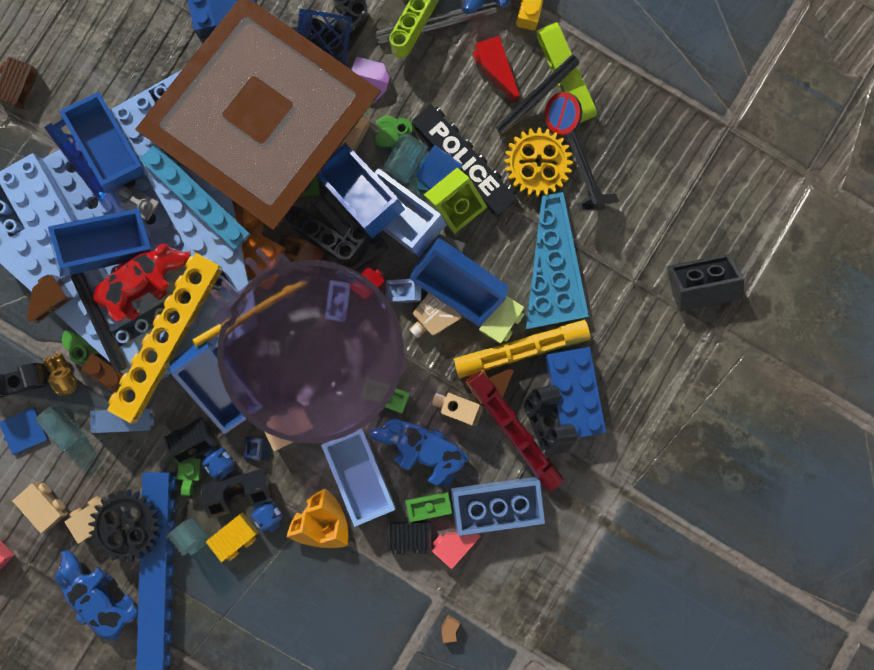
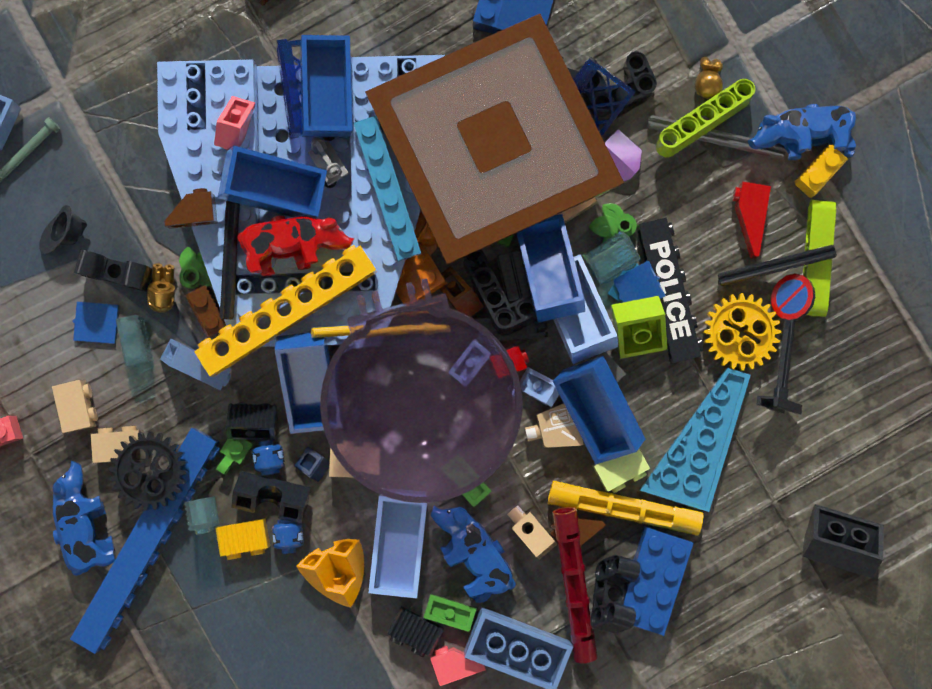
camera: 35 degrees right, 0 degrees up
(42, 210) = (233, 123): none -> coral slope

